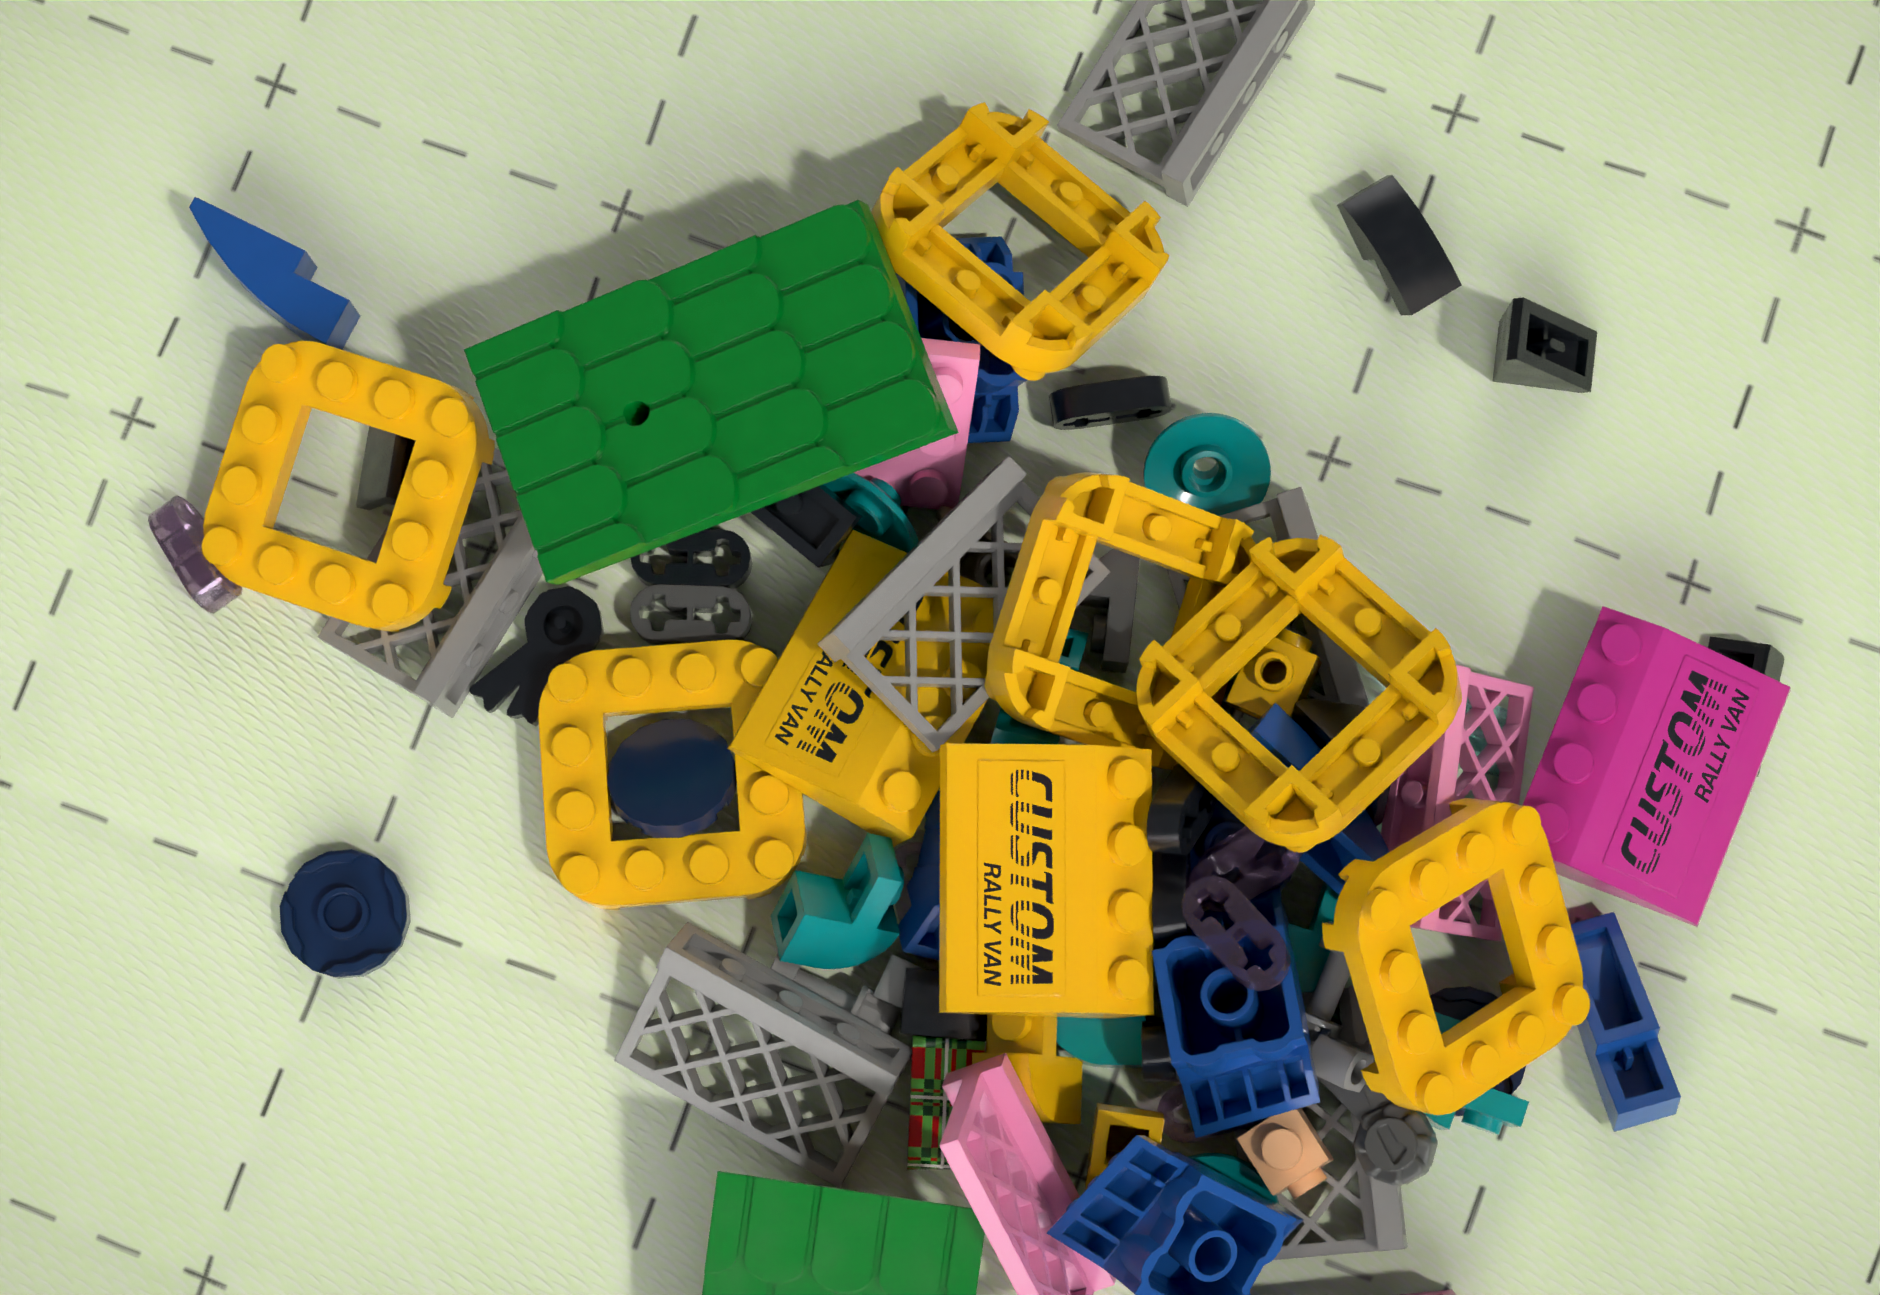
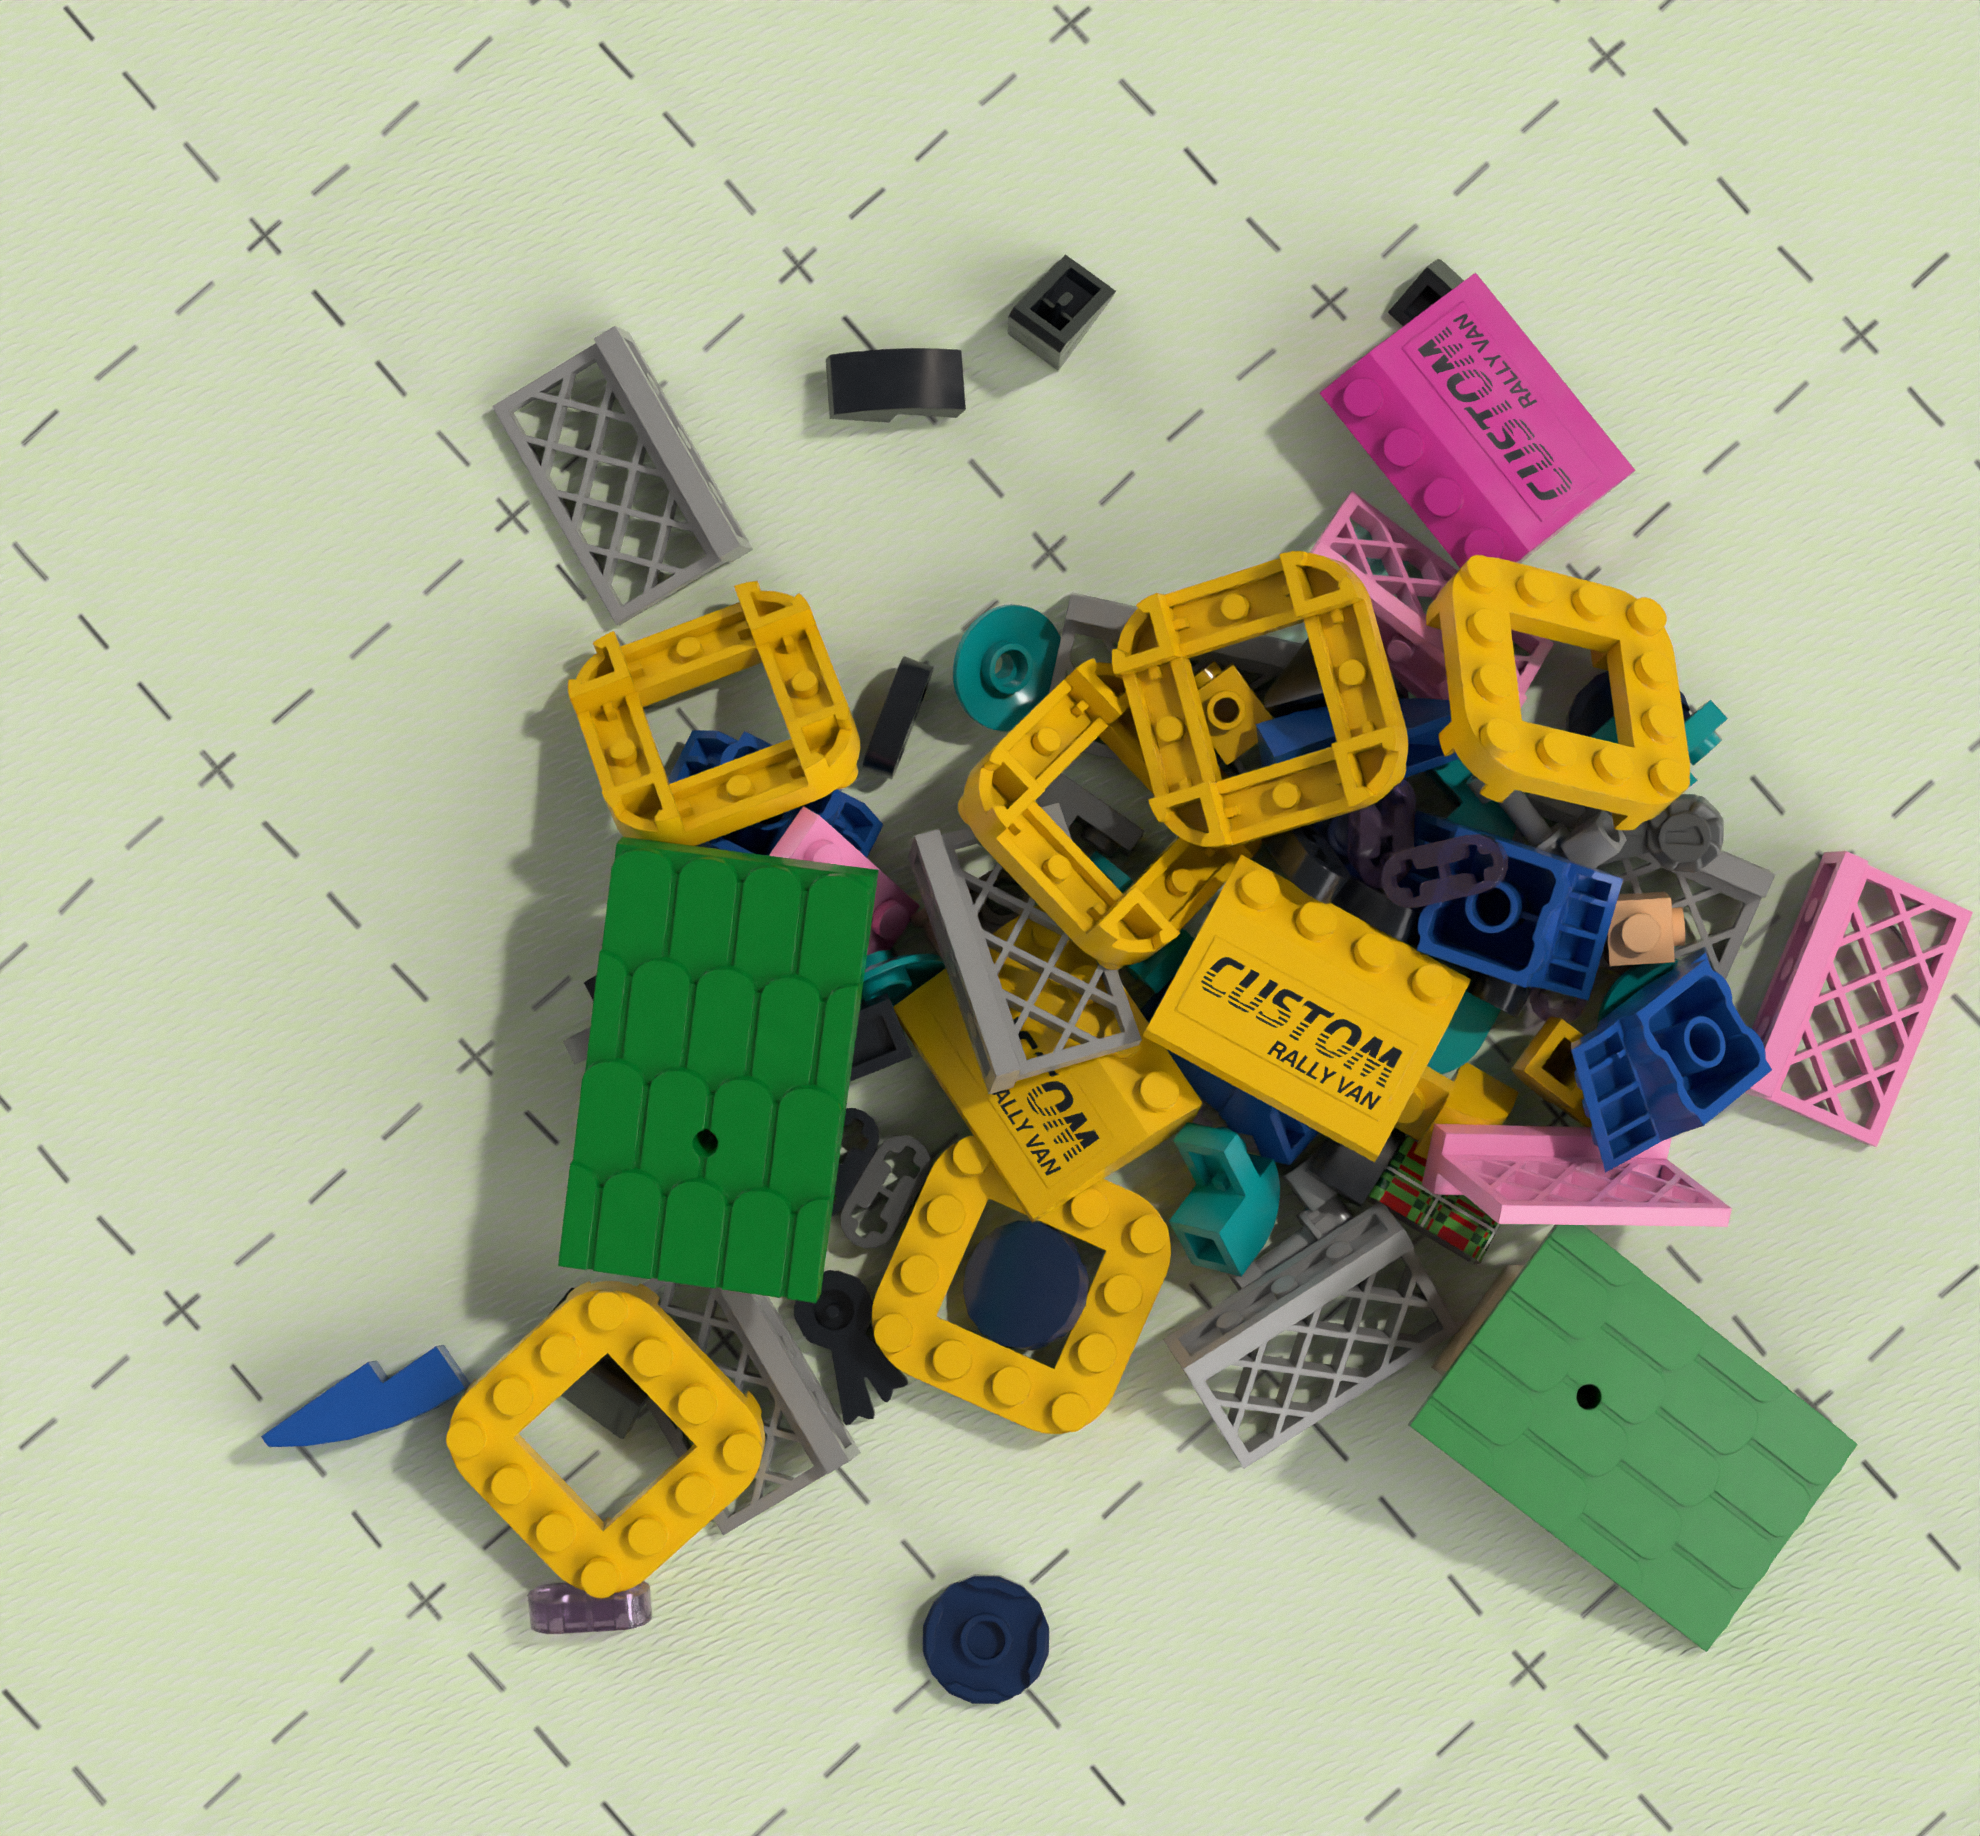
camera: 65 degrees left, 5 degrees up
(1621, 1029) = (1684, 582): blue slope -> none

